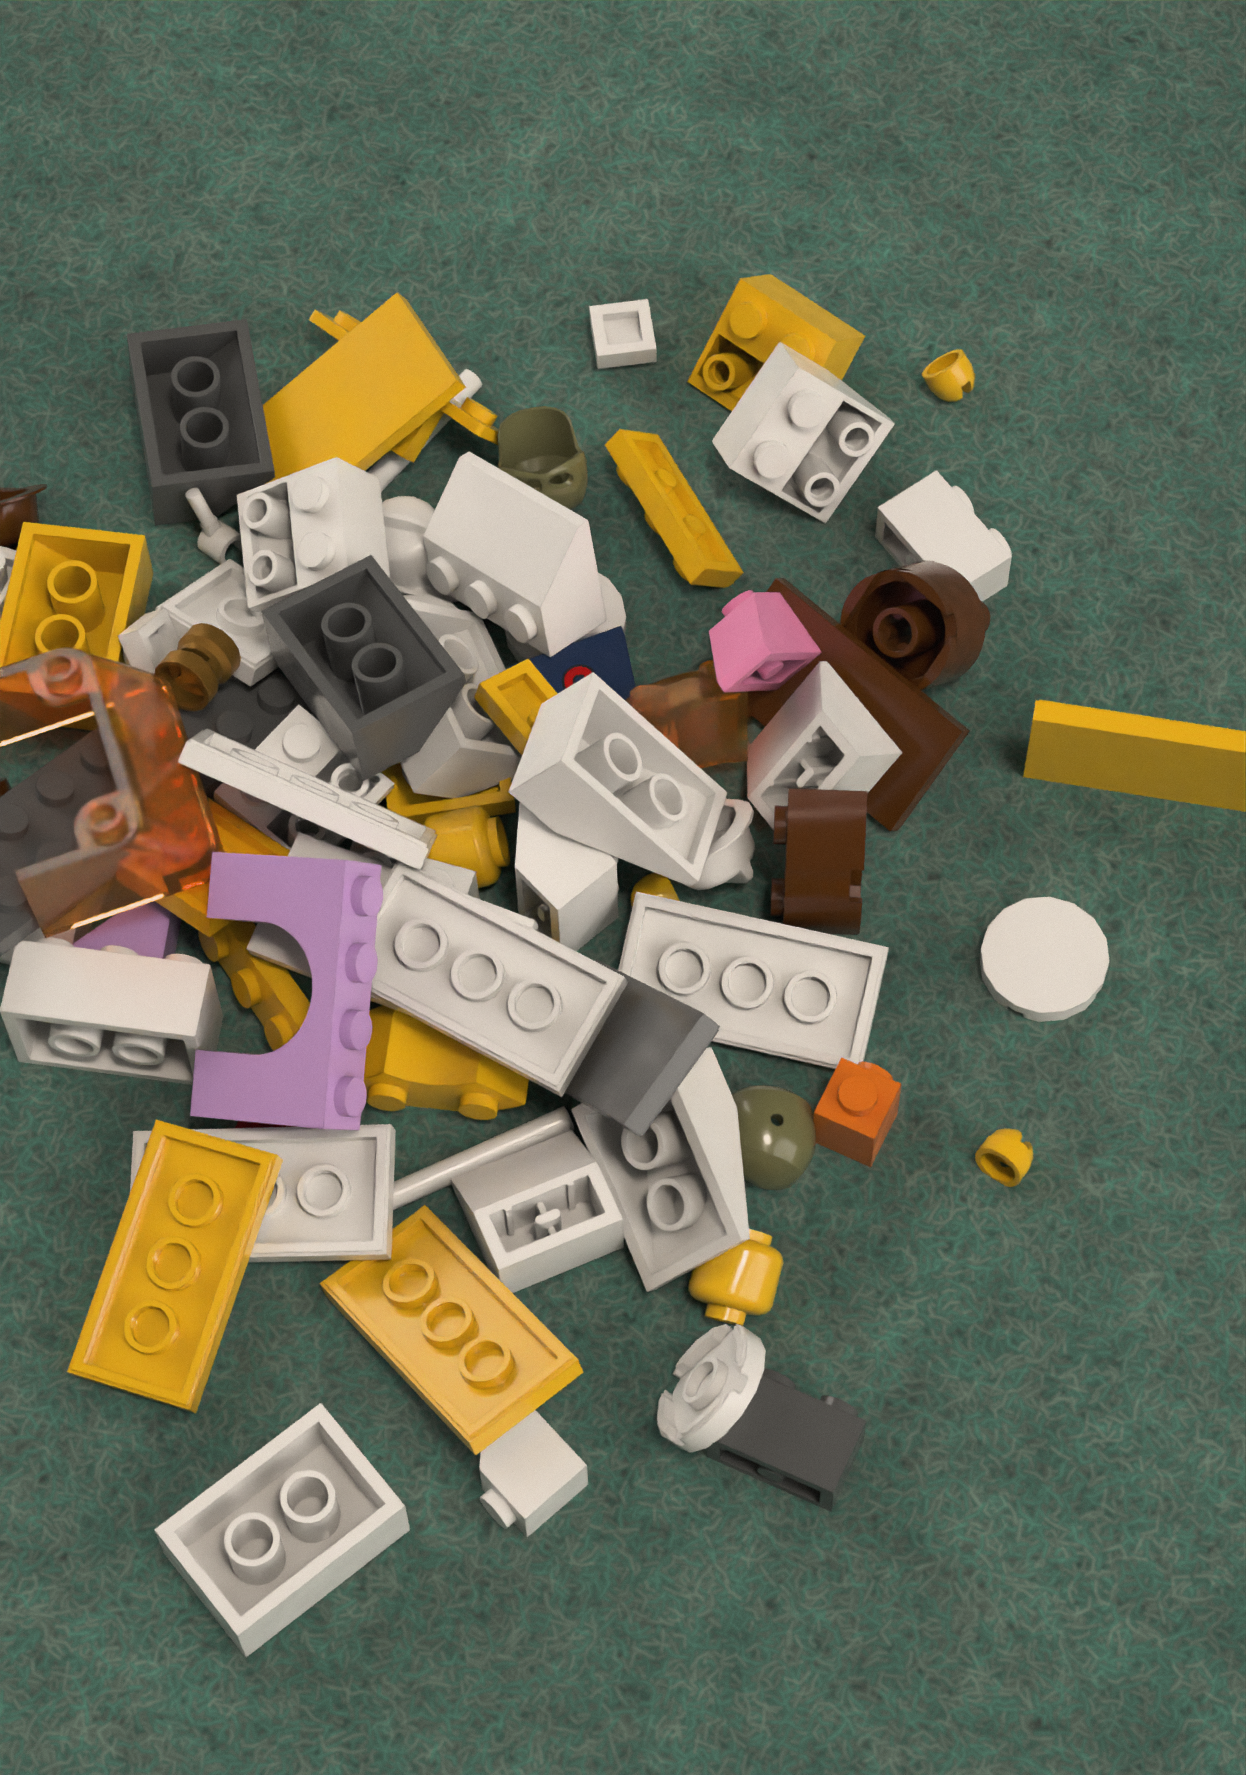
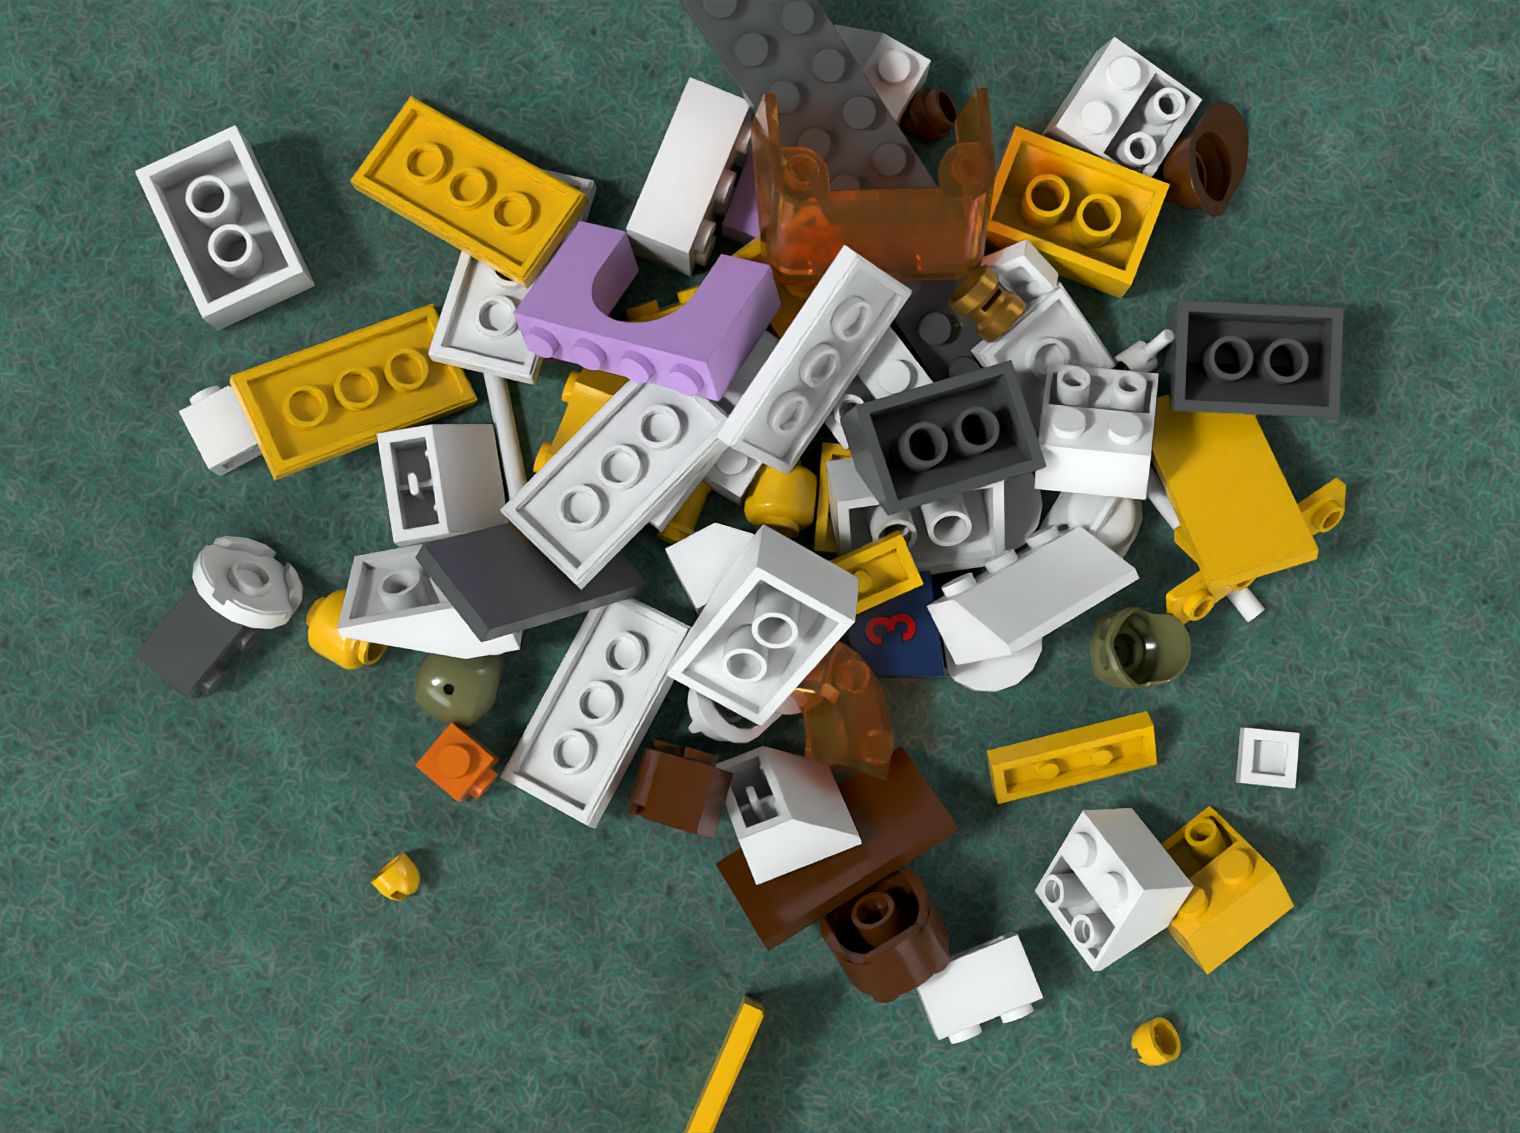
camera: 100 degrees right, 20 degrees up
(759, 643) = (887, 785): bright pink slope -> none
(1044, 958) = (566, 961): white tile -> none

